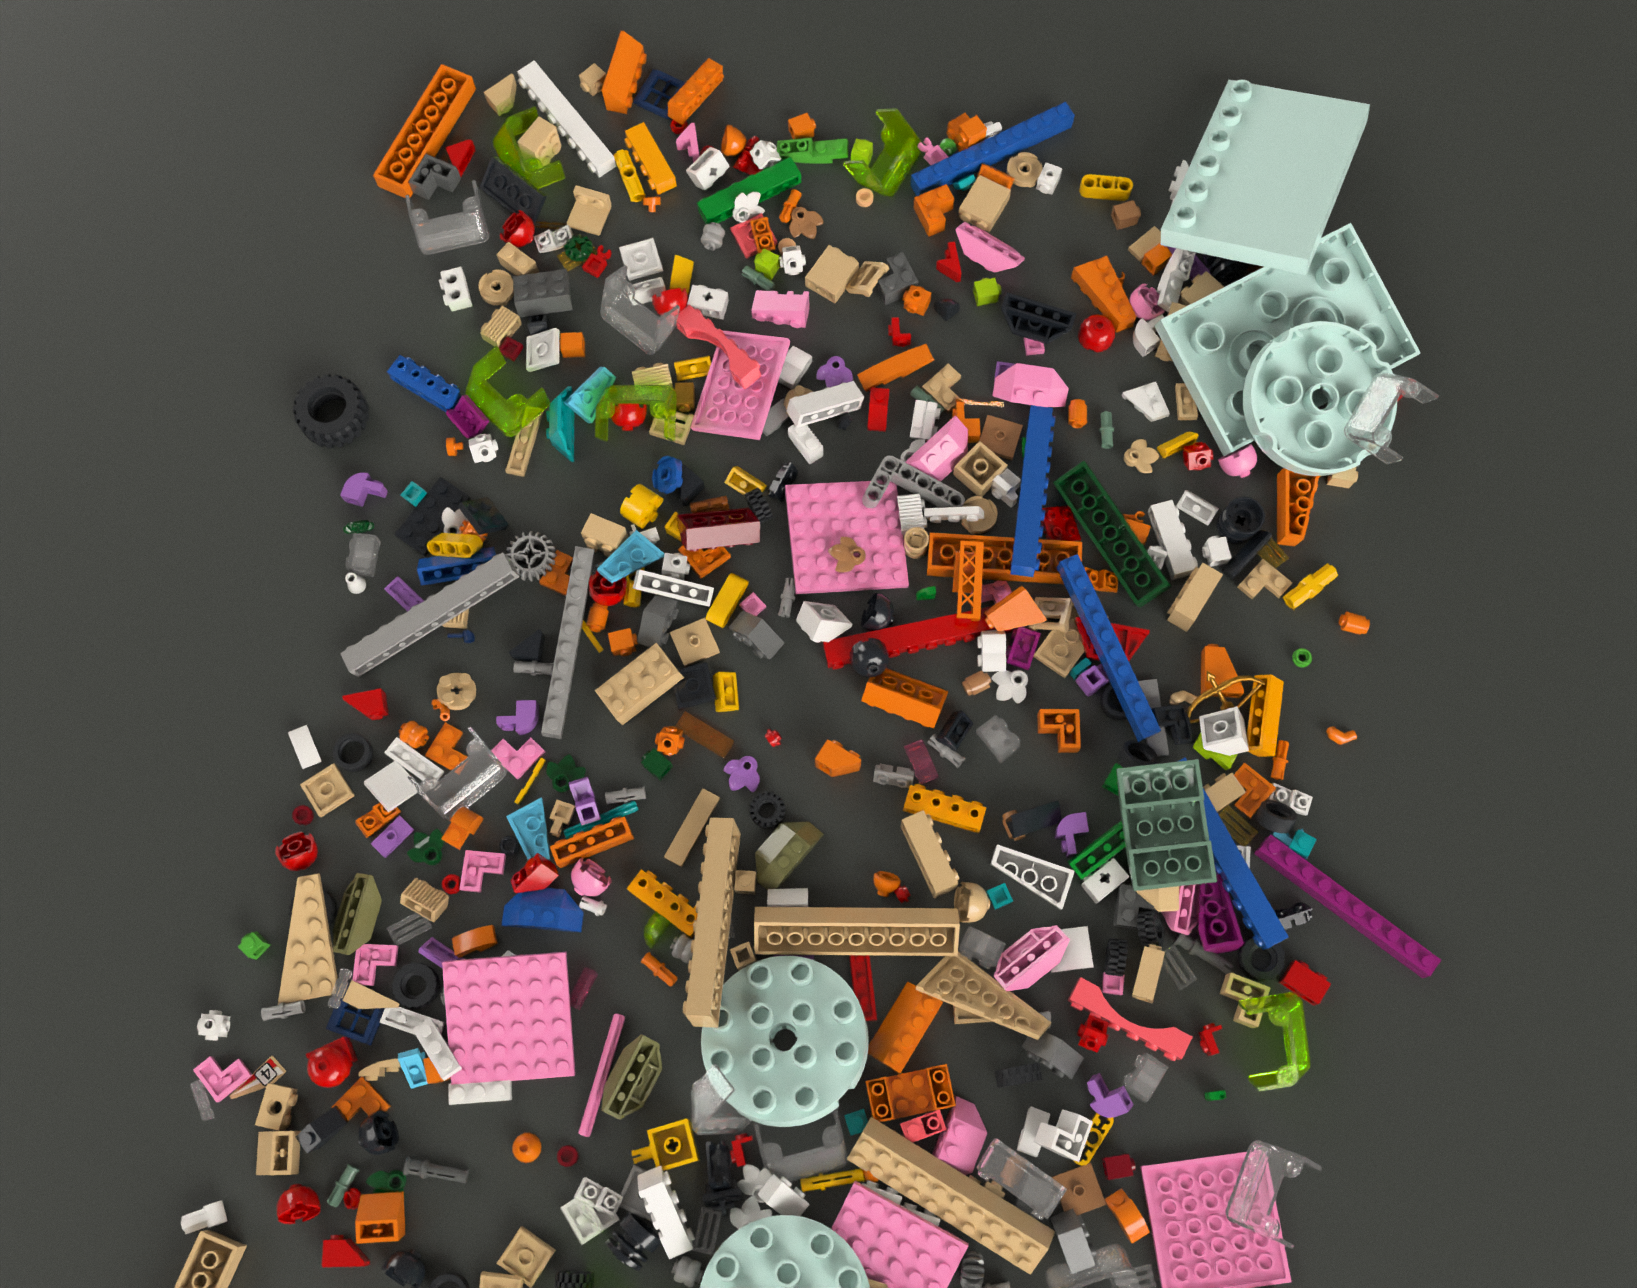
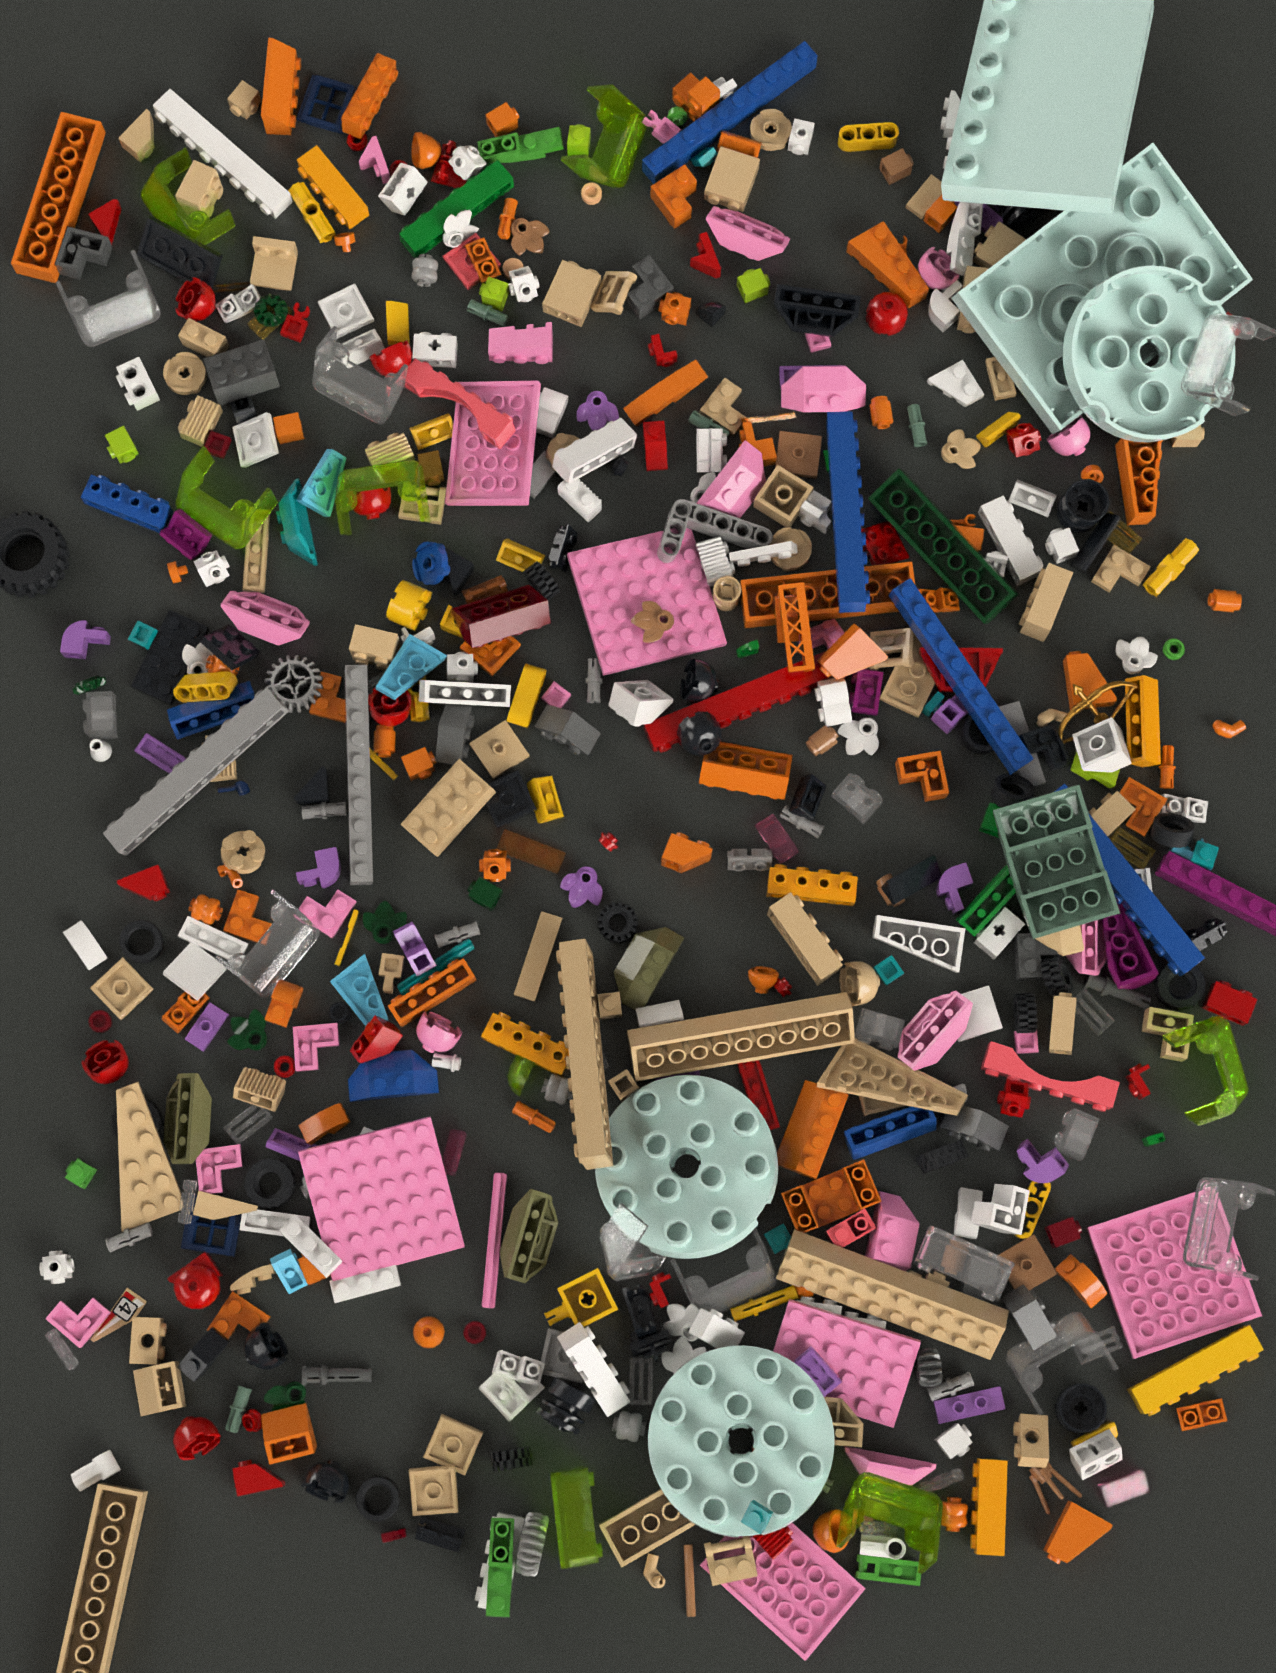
camera: 15 degrees left, 5 degrees up
(431, 336) = (121, 445): none -> lime brick
(517, 495) = (265, 617): none -> bright pink wedge
(868, 1254) = (818, 1370): none -> medium lavender plate
(974, 1042) = (889, 1131): none -> blue brick
(1254, 493) = (1092, 472): none -> orange tile
(1267, 654) = (1137, 652): none -> white plate

